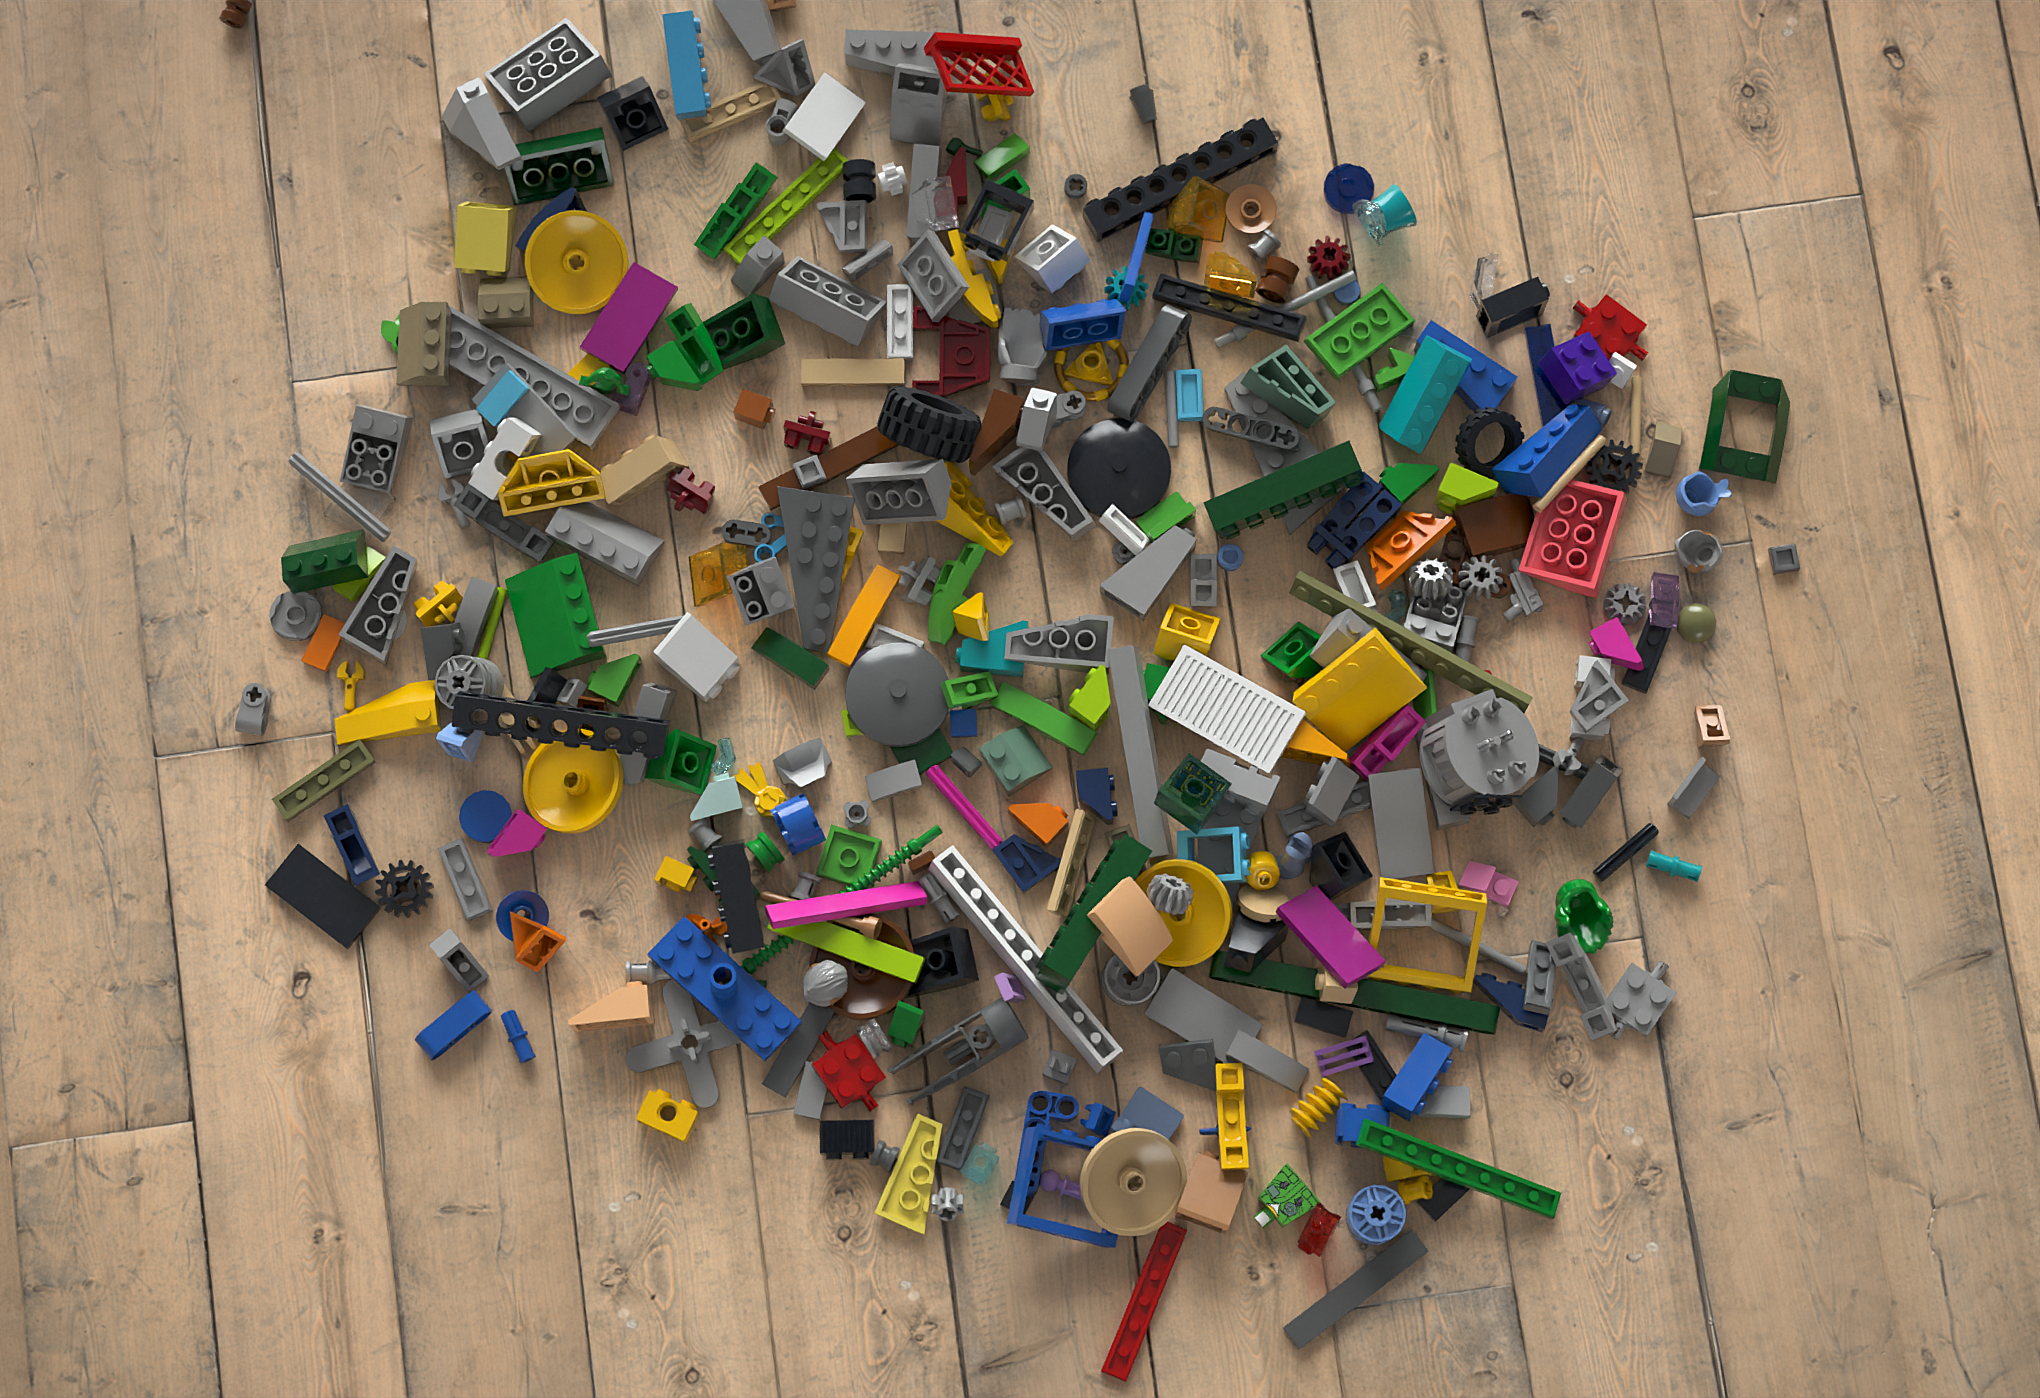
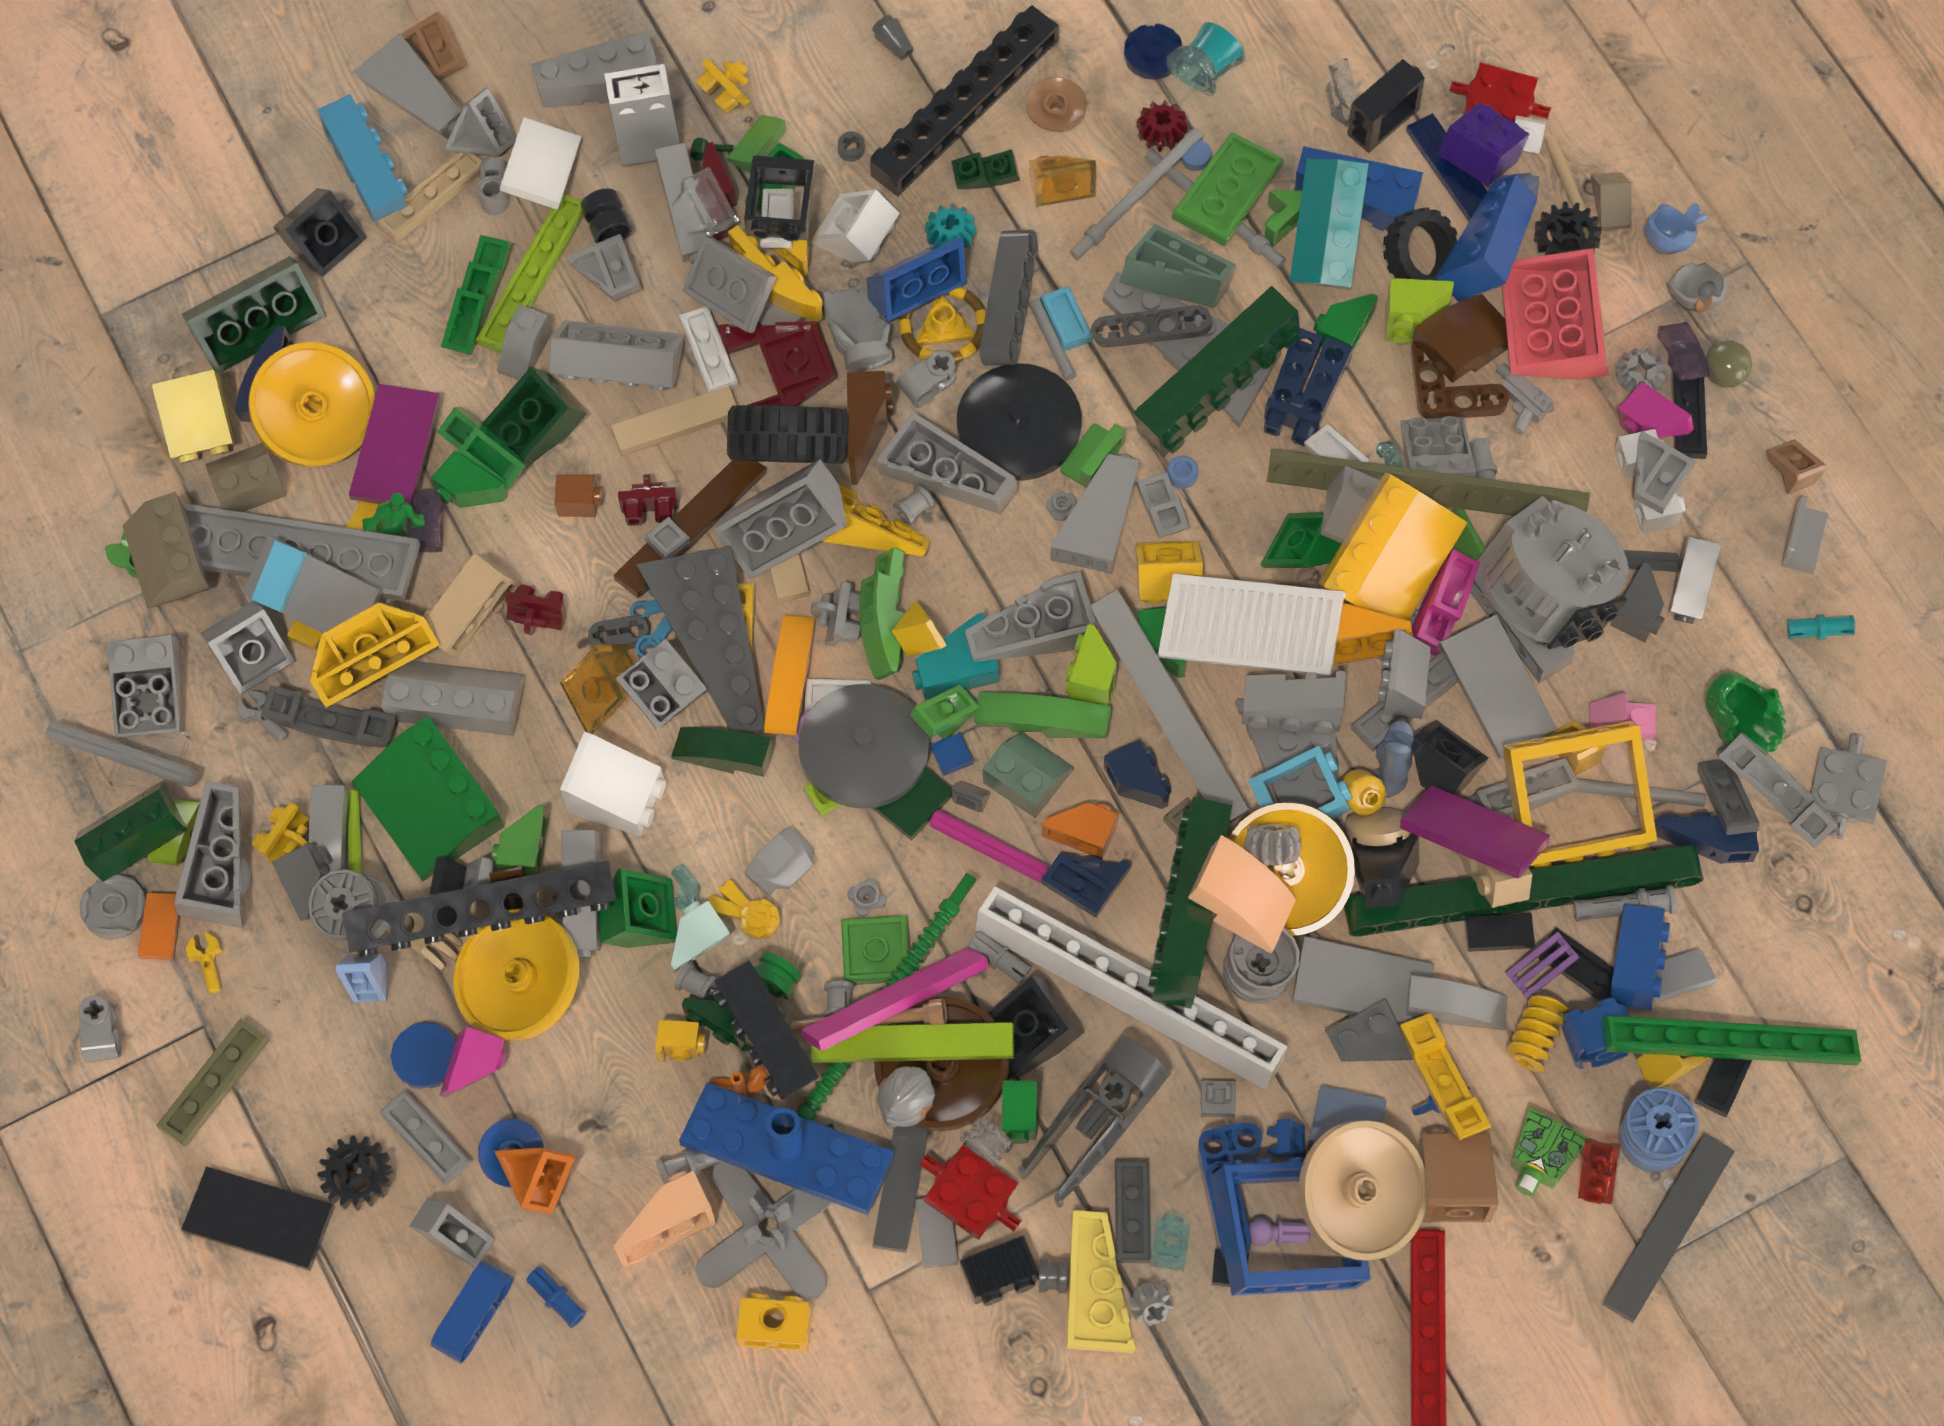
camera: 20 degrees left, 10 degrees down
(352, 844) = (273, 1143): dark blue slope -> none
(400, 713) = (275, 977): yellow wedge -> none
(478, 124) = (145, 294): light grey wedge -> none
(512, 436) = (304, 615): white arch -> none
(548, 74) = (208, 223): light grey slope -> none
(632, 632) = (524, 782): light grey axle -> none
(798, 824) = (804, 928): blue brick -> none
(868, 260) = (648, 297): light grey slope -> none
(892, 178) = (642, 203): white gear -> none
(893, 780) = (894, 844): light grey slope -> none
(921, 862) = (964, 923): reddish brown tile -> none
(978, 49) = (692, 37): red fence -> none
(1010, 988) = (1125, 1024): lavender tile -> none
(1037, 419) = (908, 389): light grey slope -> none
(1071, 863) = (1139, 863): tan tile -> none
(1124, 530) = (1052, 479): white tile -> none
(1136, 257) = (950, 189): tile -> none
(1192, 793) = (1251, 728): clear green slope -> none
(1199, 211) = (999, 123): clear yellow slope -> none
(1229, 307) = (1074, 210): black tile -> none
(1264, 246) = (1085, 138): light grey bush -> none
(1277, 278) = (1115, 165): reddish brown wheel -> none
(1404, 543) = (1372, 387): orange wing -> none
(1415, 1189) = (1691, 1083): yellow bush -> none
(1430, 578) = (1418, 412): light grey gear -> none
(1472, 570) = (1484, 391): light grey gear -> none
(1568, 475) = (1524, 251): tan bar -> none
(1569, 756) = (1654, 548): light grey bar -> none
(1625, 852) = (1760, 631): black axle -> none
(1737, 461) = (1696, 184): dark green wedge -> none
(1784, 559) = (1792, 267): flat silver tile -> none

